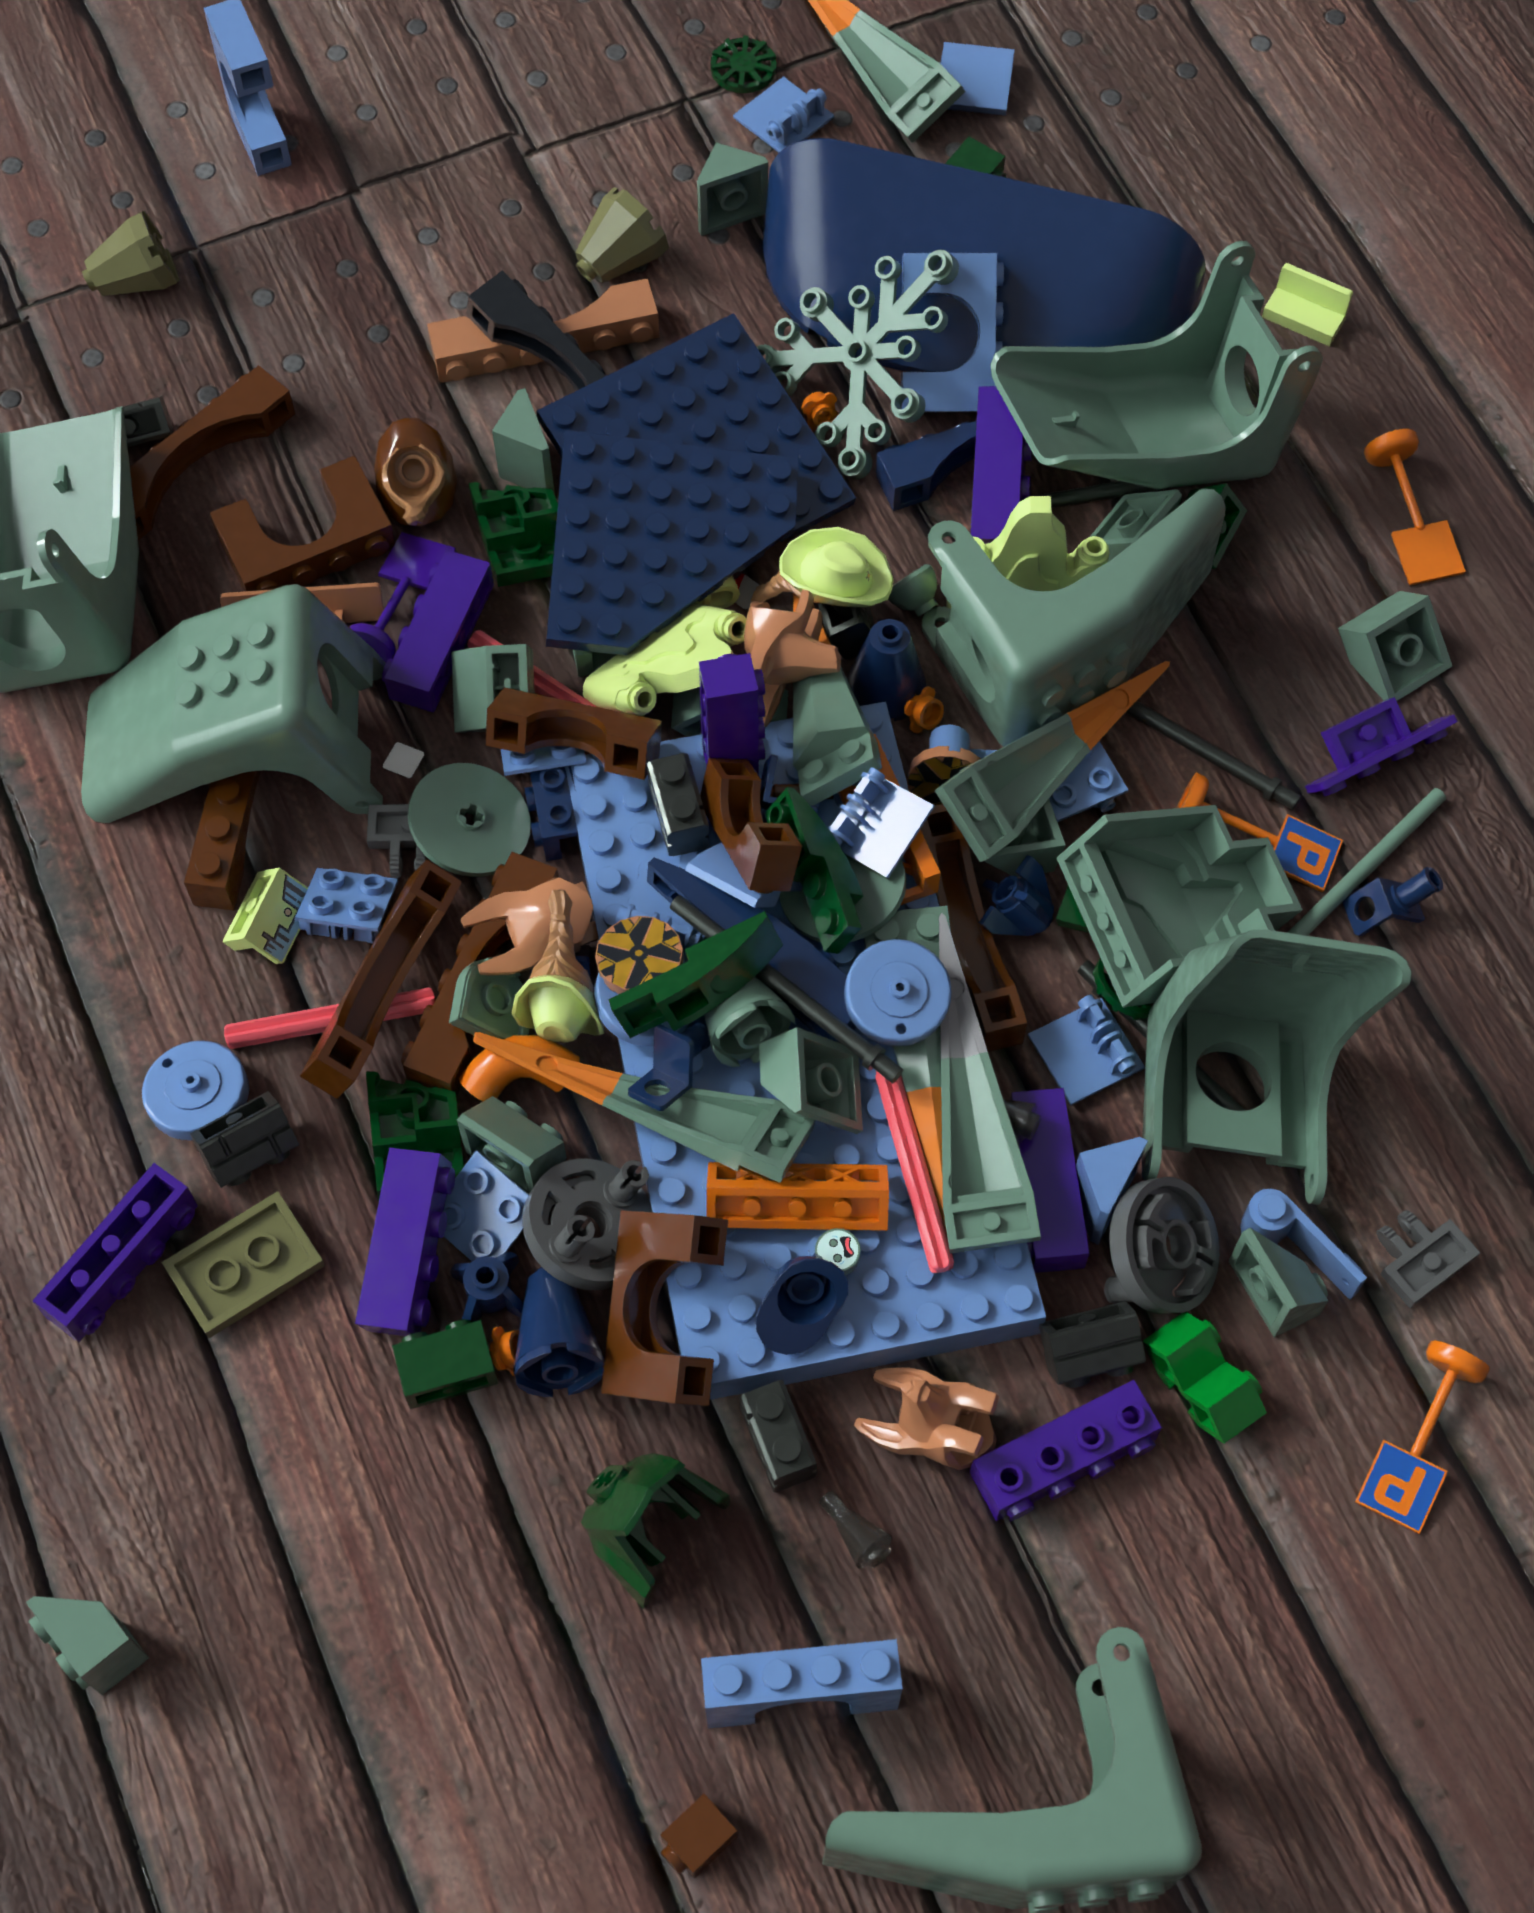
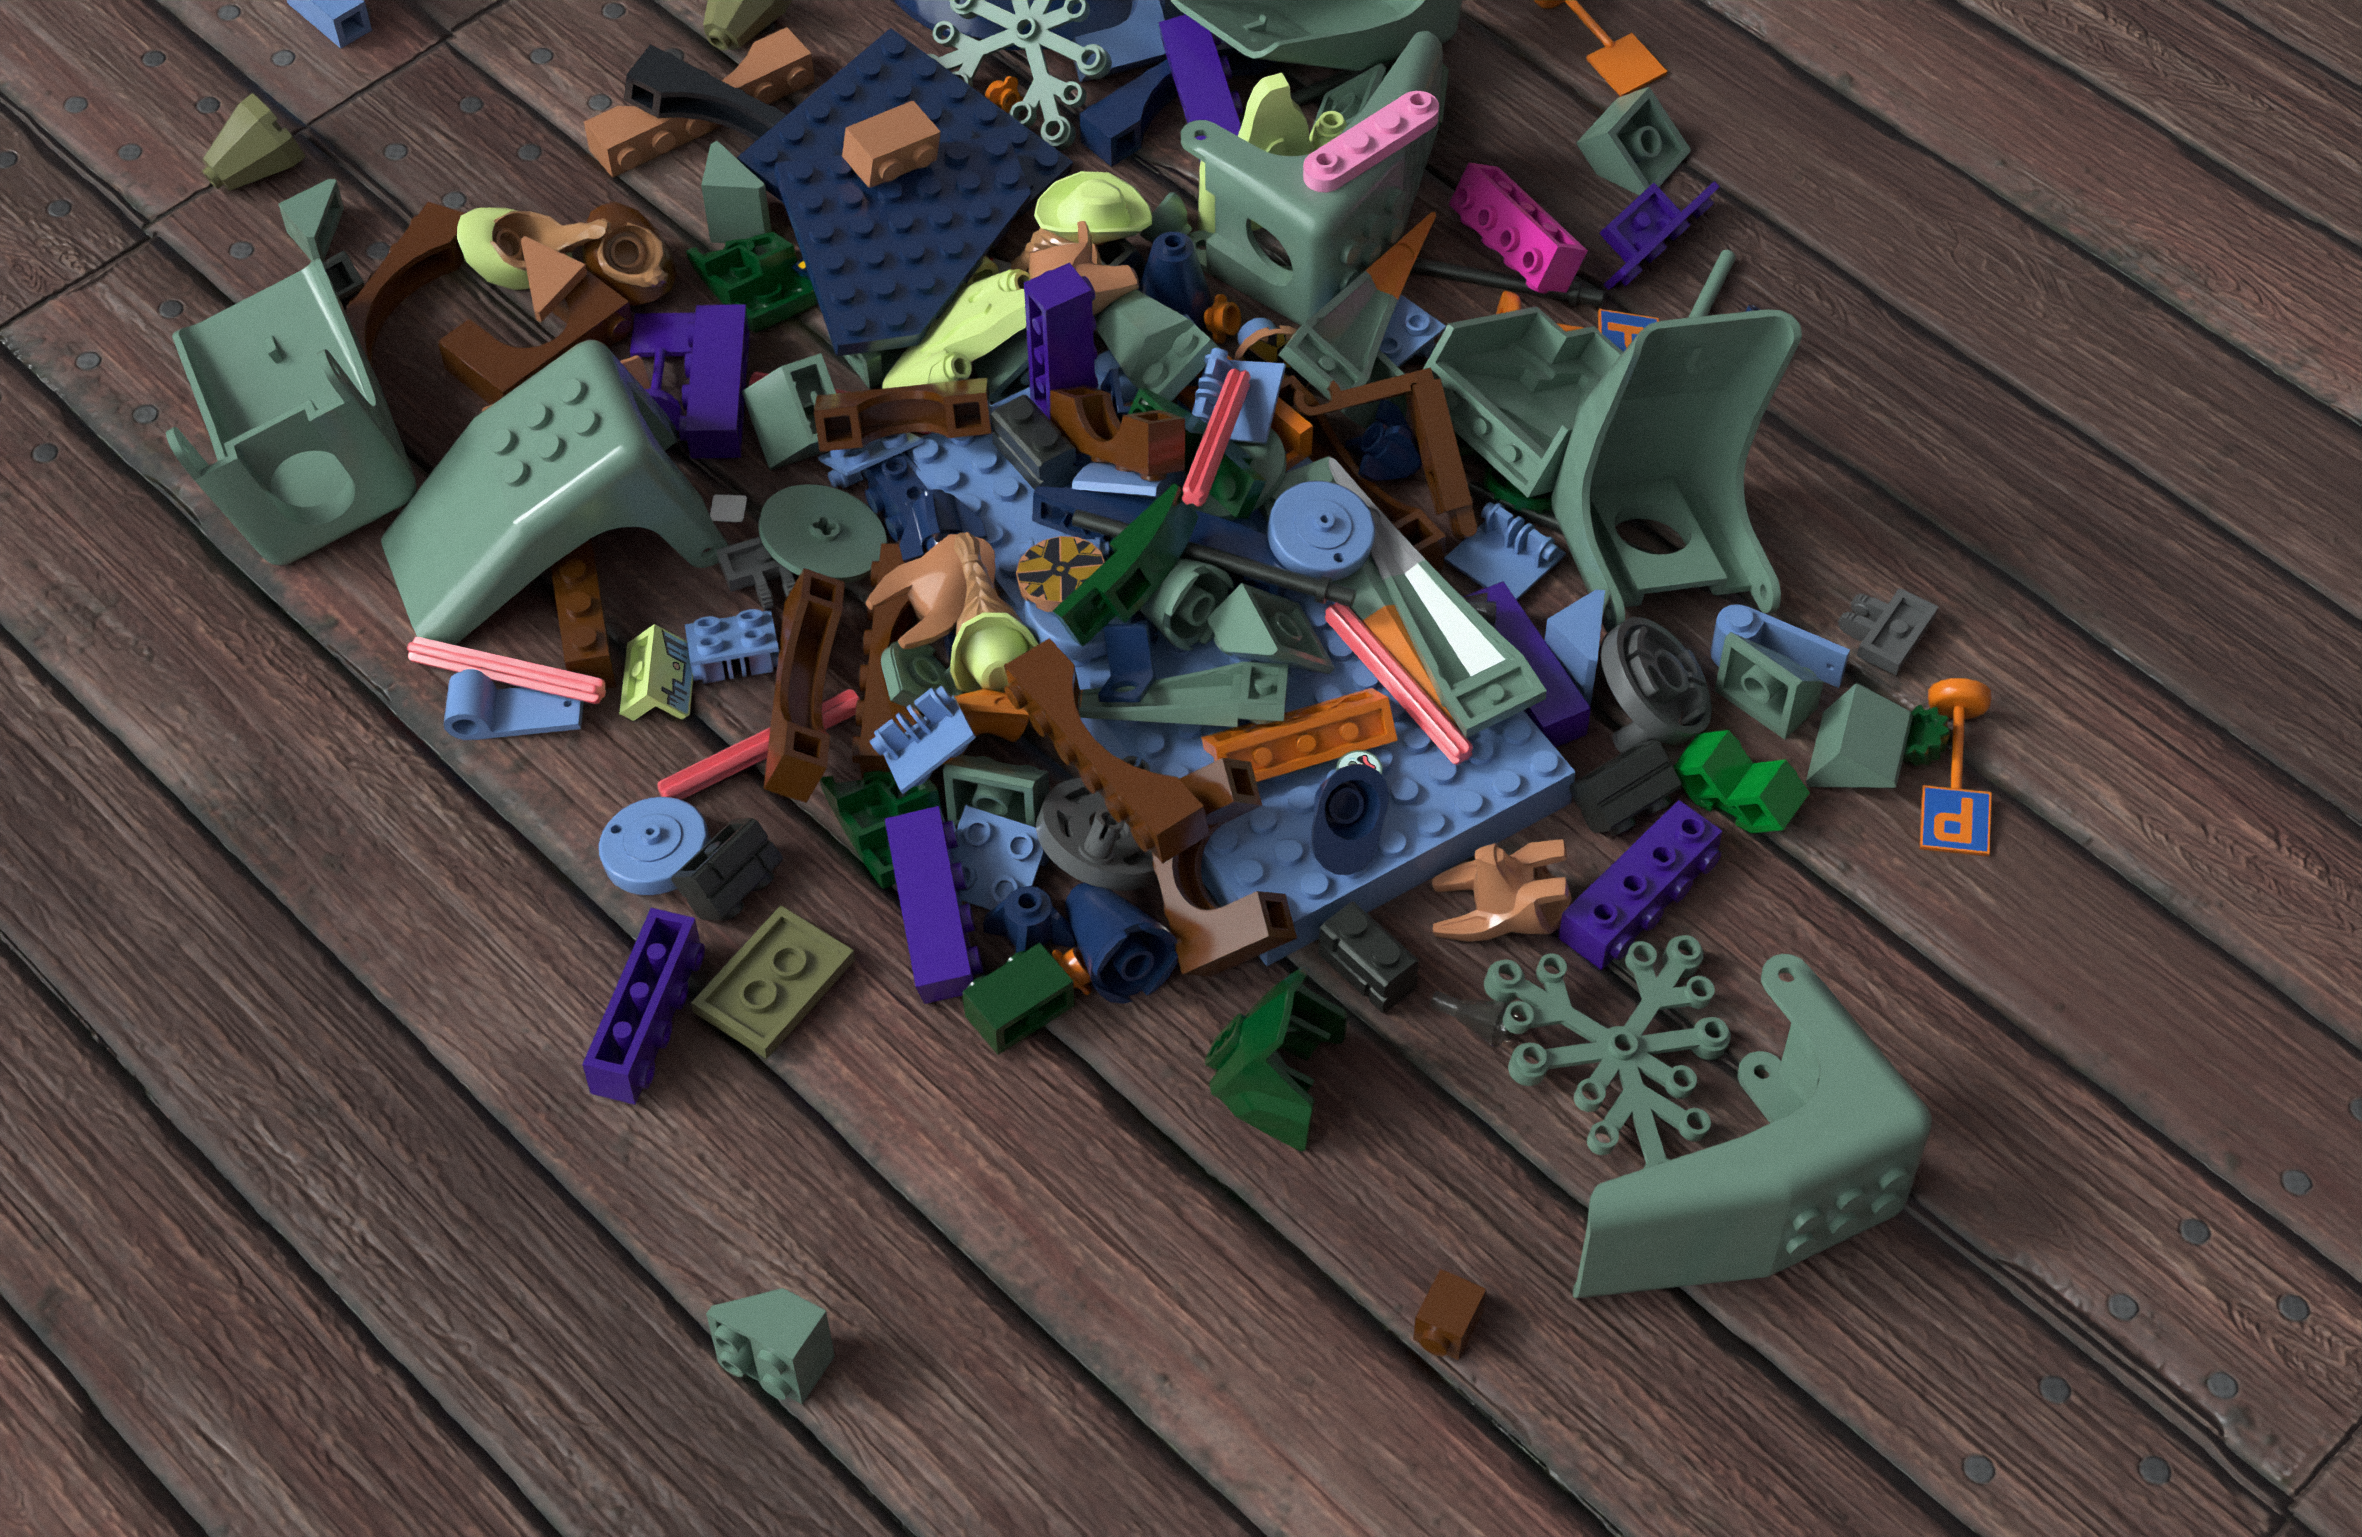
camera: 20 degrees left, 10 degrees down
(112, 901) = (482, 712): none -> medium blue door
(140, 868) = (508, 670): none -> axle
(161, 348) = (313, 217): none -> sand green slope
(319, 431) = (494, 235): none -> hat
(329, 478) = (549, 276): none -> nougat tile
(454, 1079) = (928, 743): none -> medium blue hinge
(565, 853) = (933, 519): none -> dark blue brick
(619, 1236) = (1154, 805): none -> reddish brown arch
(674, 445) = (891, 144): none -> nougat brick
(830, 869) = (1216, 437): none -> coral axle
(853, 1673) = (1542, 1111): medium blue arch -> none
(966, 1676) = (1636, 1099): none -> sand green plant
(1056, 909) = (1433, 435): none -> reddish brown hinge
(1105, 597) = (1370, 141): none -> bright pink plate
(1239, 707) = (1517, 228): none -> dark pink brick
(1339, 1376) = (1860, 742): none -> sand green slope
(1400, 1385) = (1926, 736): none -> dark green piece

